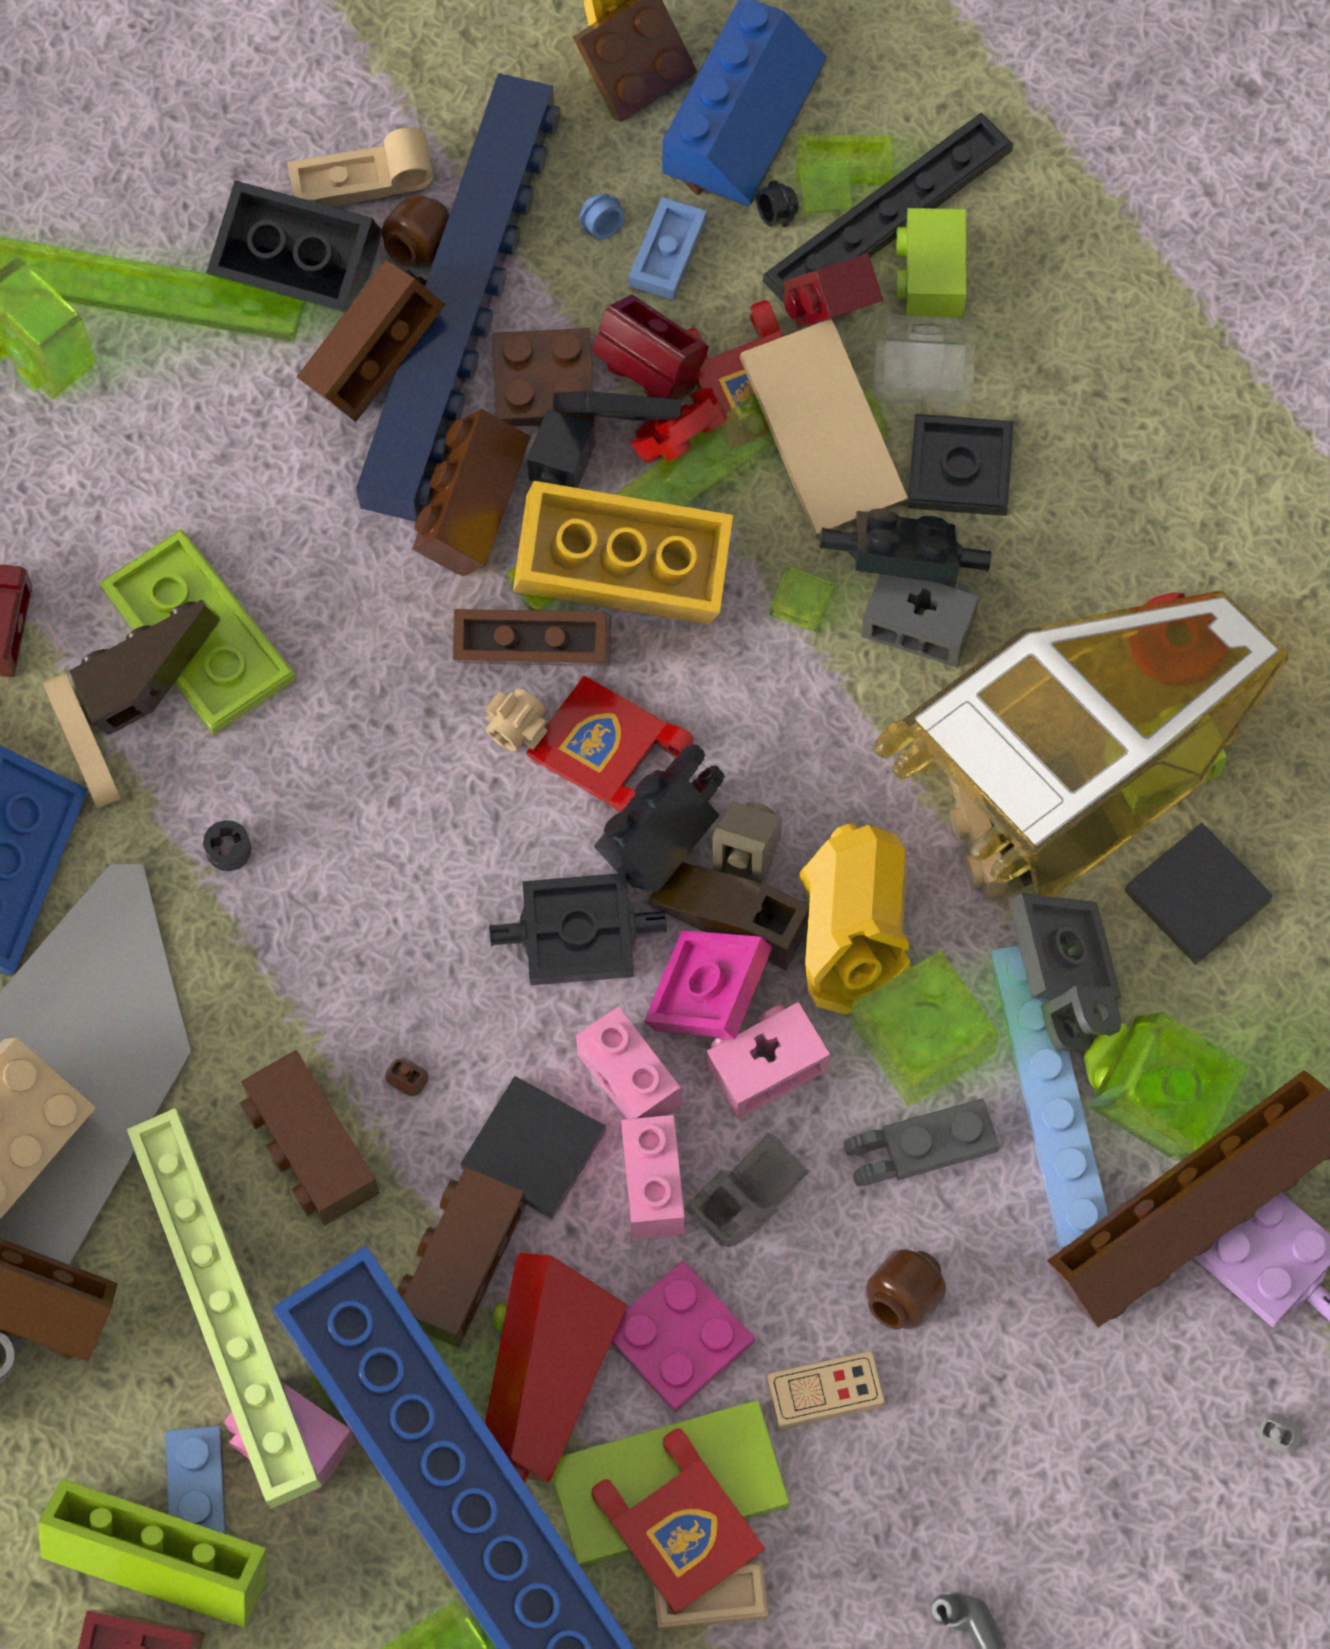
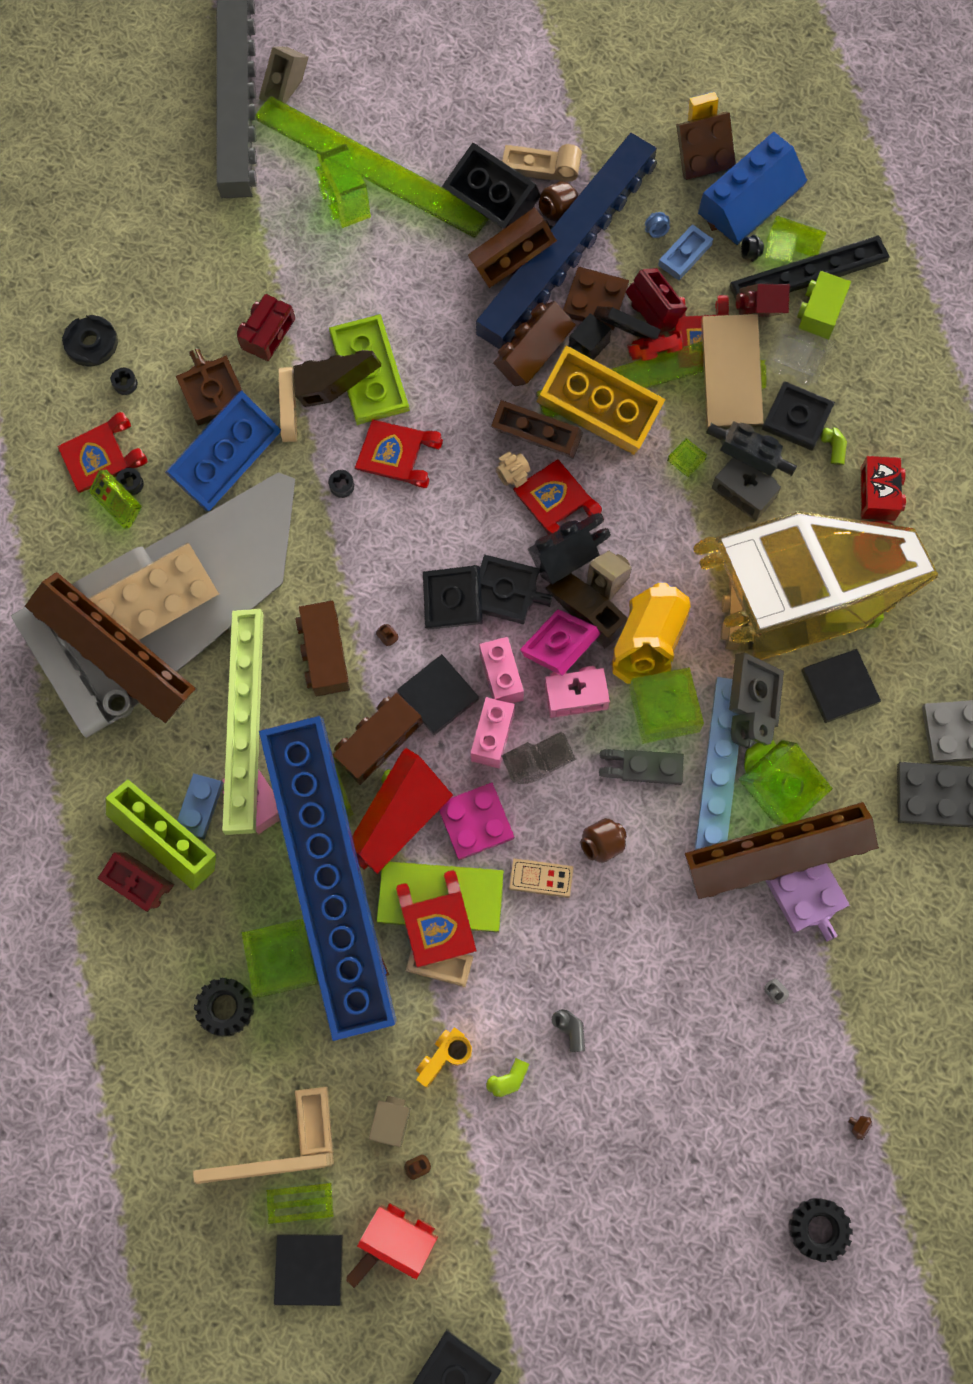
camera: 20 degrees right, 5 degrees up
(295, 758) = (392, 452): none -> red flag
(497, 973) = (452, 597): none -> black tile
(1044, 489) = (838, 444): none -> lime arm
(1144, 541) = (882, 488): none -> red brick

